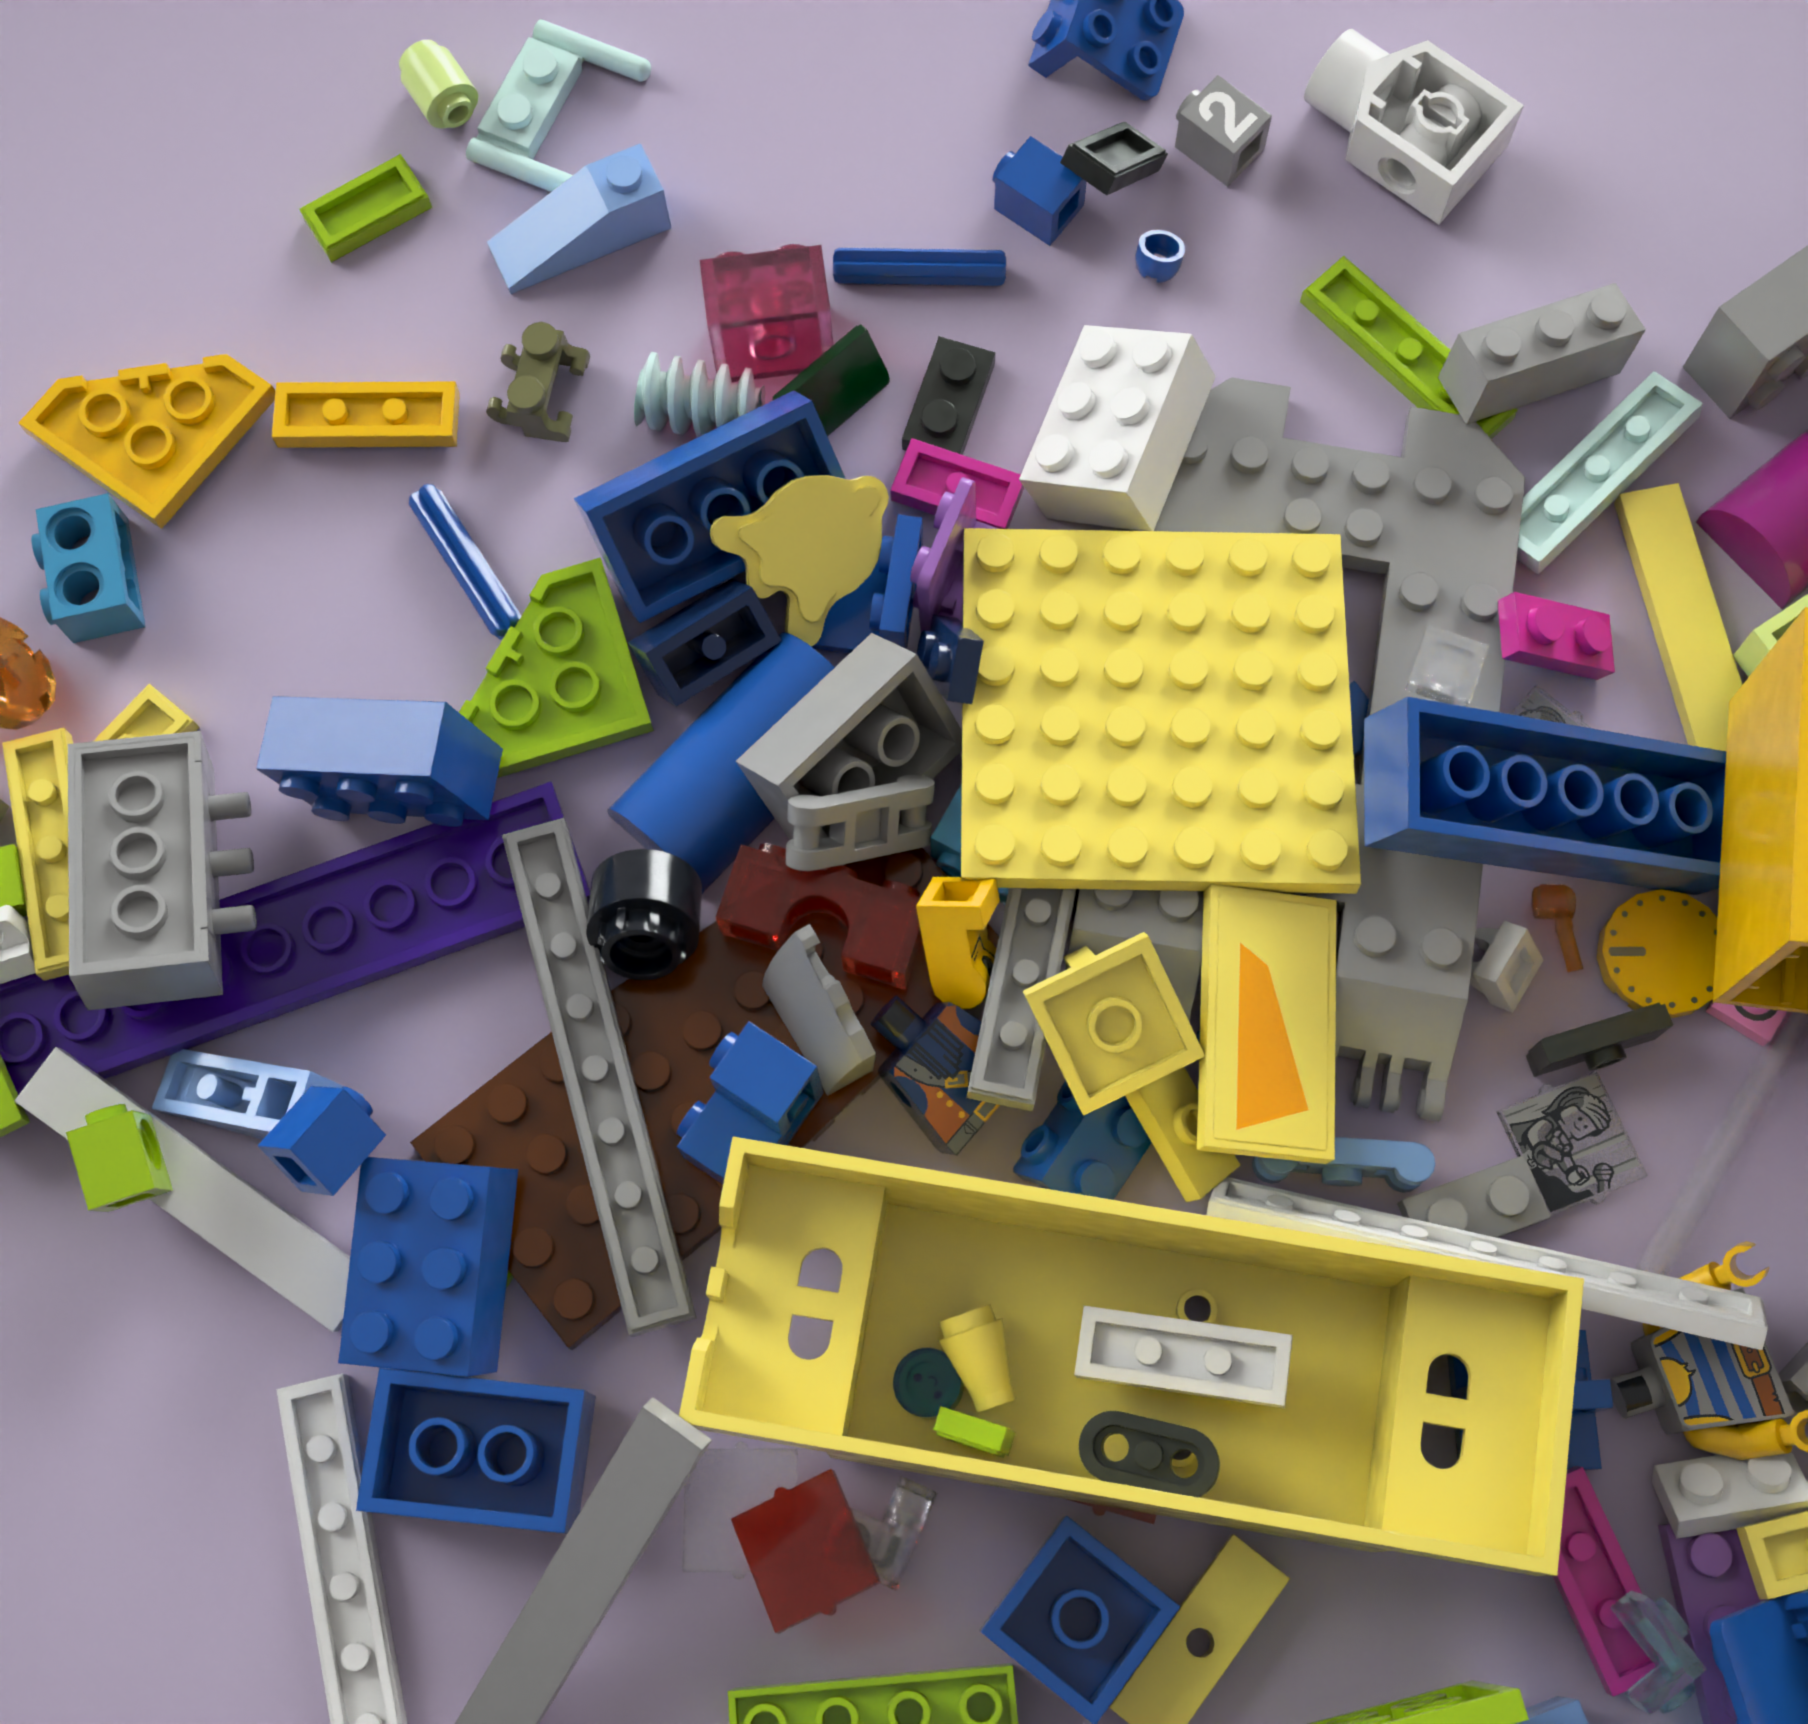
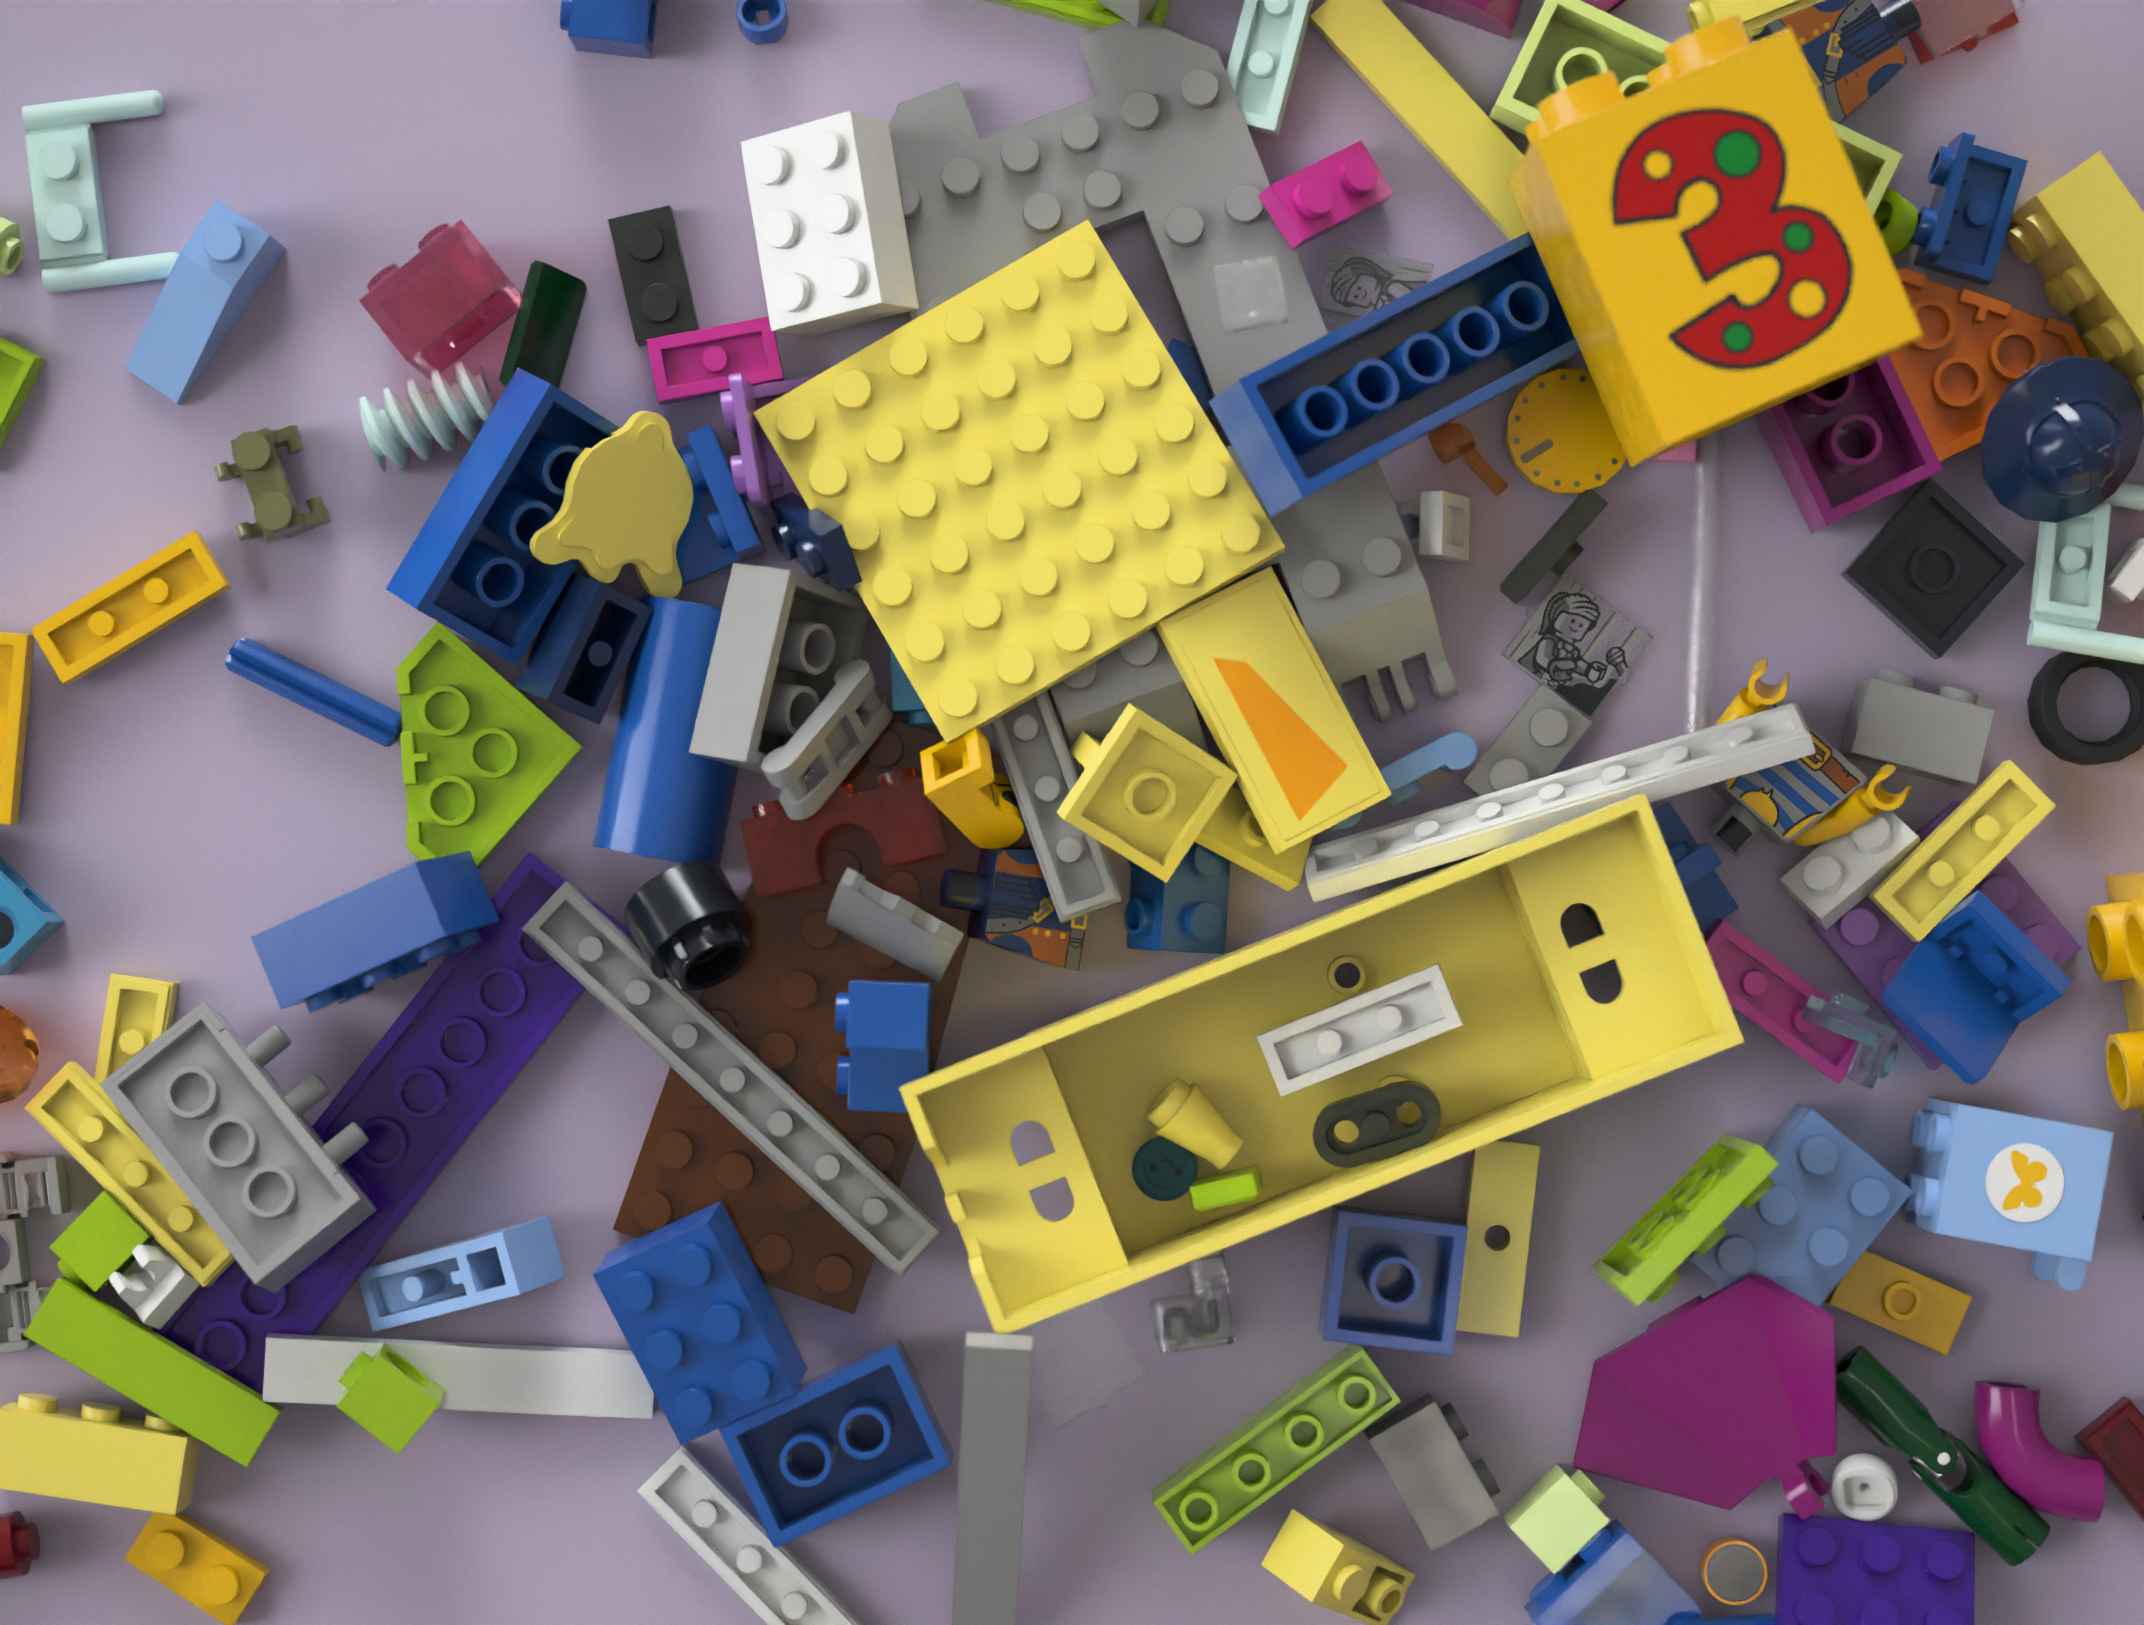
camera: 30 degrees left, 15 degrees up
(323, 1139) = (552, 1281): blue brick -> none
(805, 1551) = (1145, 1357): clear red piece -> none
(919, 266) = (545, 156): blue axle -> none

